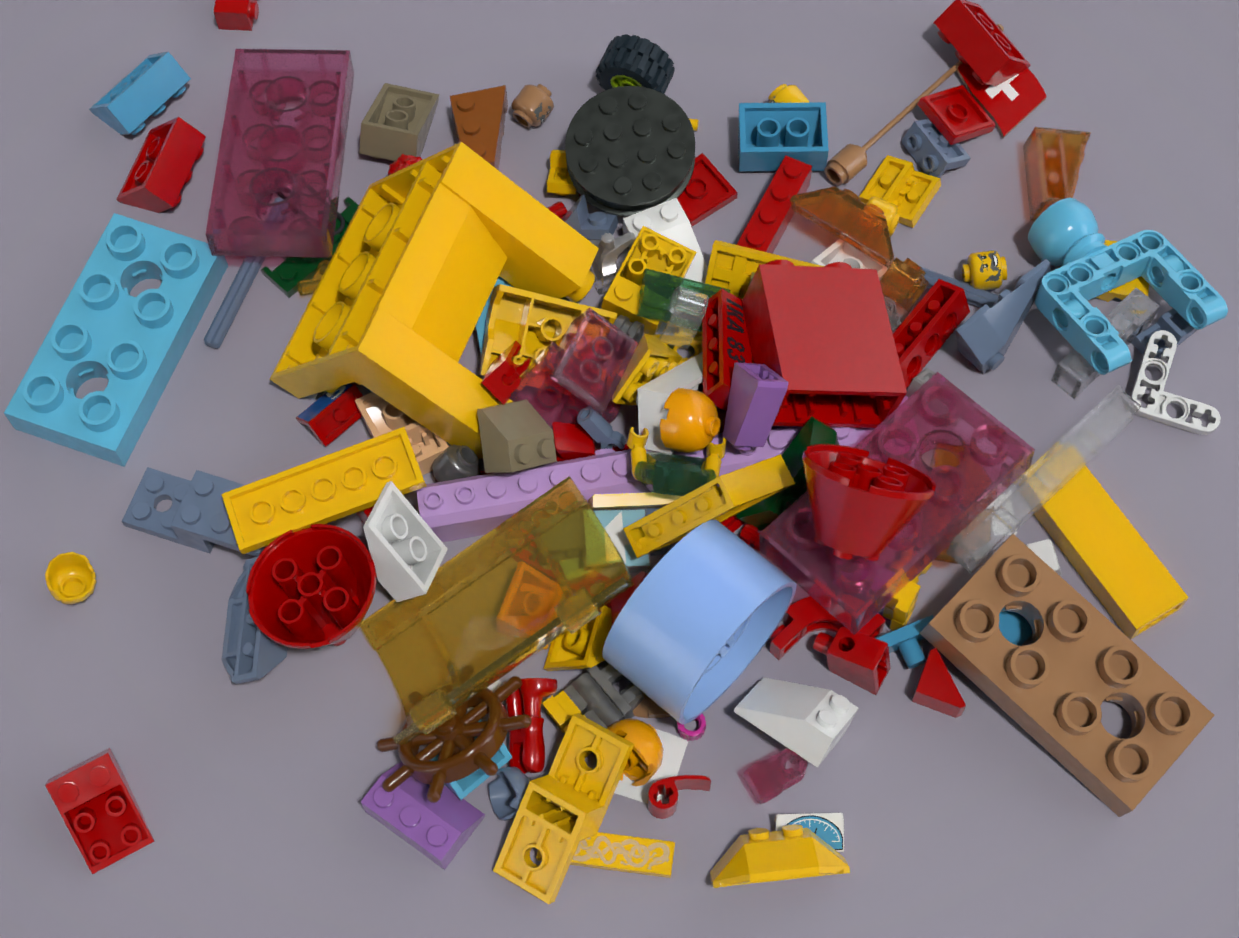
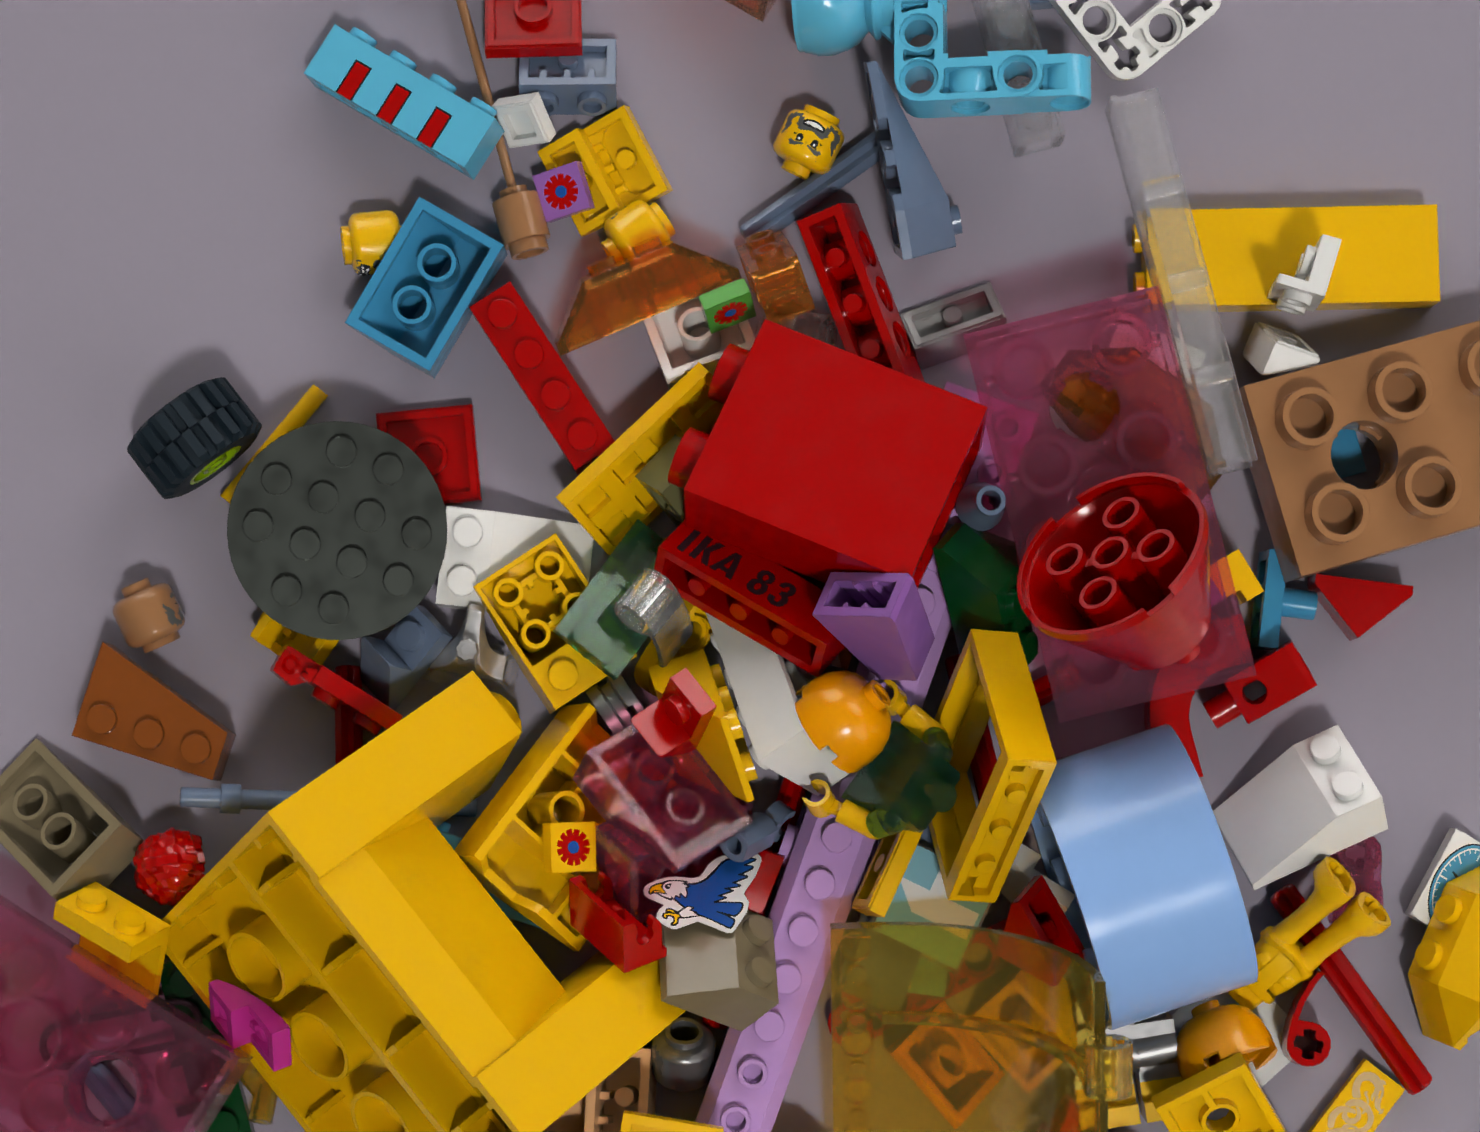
camera: 60 degrees left, 20 degrees up
(347, 237) = (248, 1019): none -> dark pink slope
(362, 163) = (117, 932): none -> yellow bracket
(533, 336) = (569, 847): none -> yellow tile
(547, 173) = (333, 690): none -> red hinge
(548, 417) = (711, 899): none -> sticker
(632, 337) = (678, 718): none -> red slope
(703, 757) = (1285, 960): none -> yellow piece
(710, 812) = (1361, 1002): none -> red axle
(852, 432) = (971, 509): none -> sand blue cone
(869, 80) = (404, 100): none -> medium azure brick
(871, 259) = (727, 305): none -> bright green tile
(875, 173) = (563, 191): none -> medium lavender tile
(898, 137) = (524, 120): none -> white tile
(1098, 540) = (1310, 280): none -> white bracket

